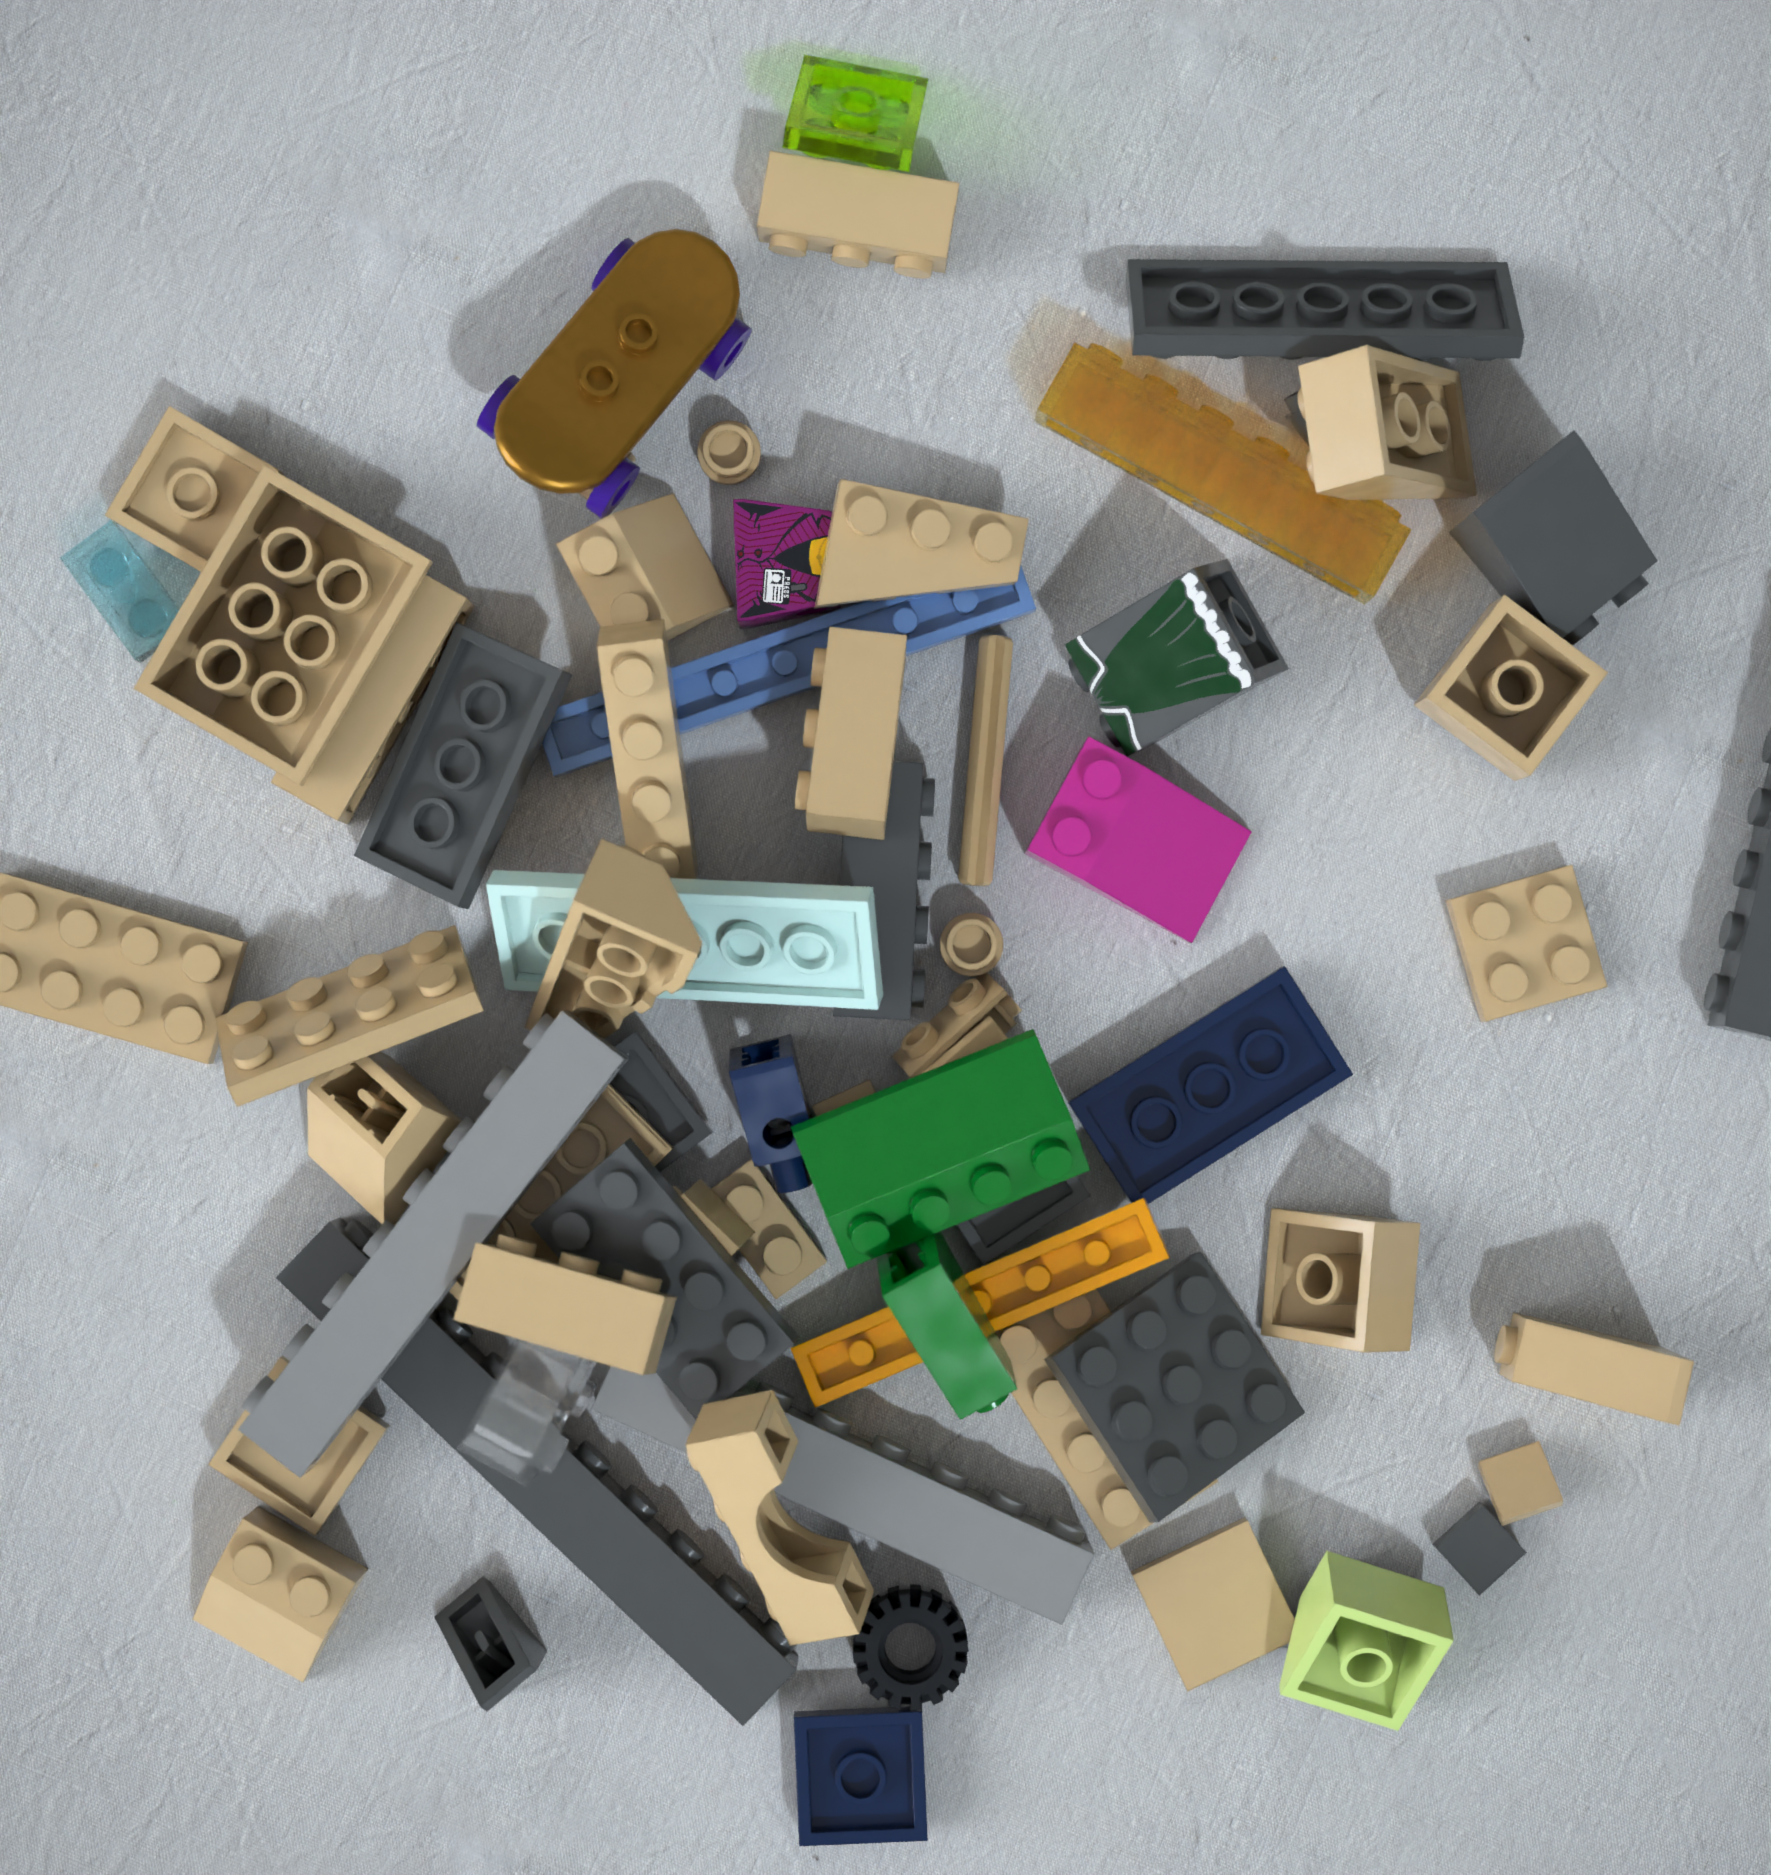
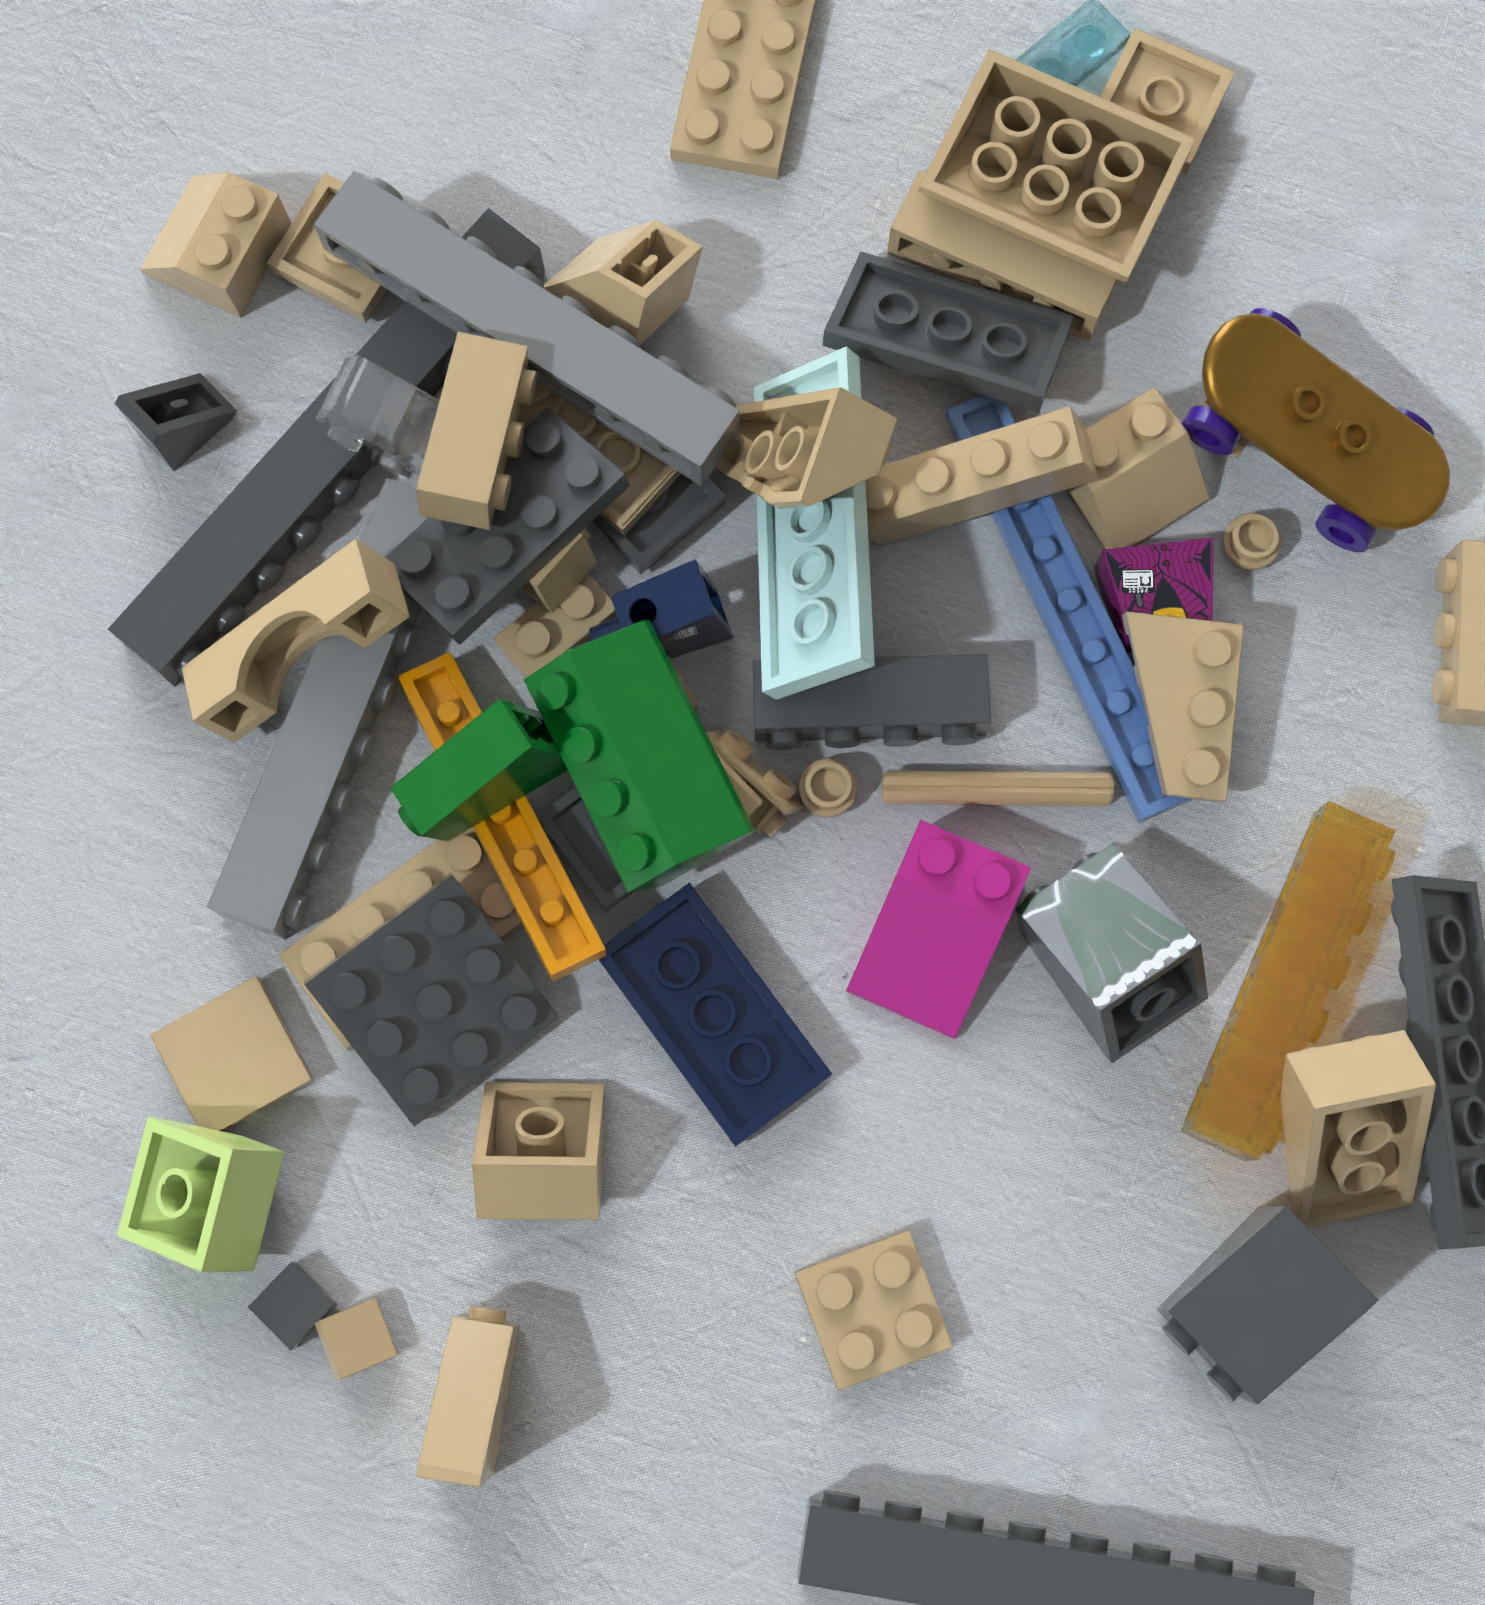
camera: 90 degrees right, 10 degrees down
(346, 1015) = (721, 247): tan plate -> none
(852, 733) = (1012, 653): tan brick -> none
(860, 1776) = (66, 744): dark blue plate -> none
(917, 1685) = (156, 759): black tyre -> none
(1510, 688) = (1118, 1268): tan brick -> none

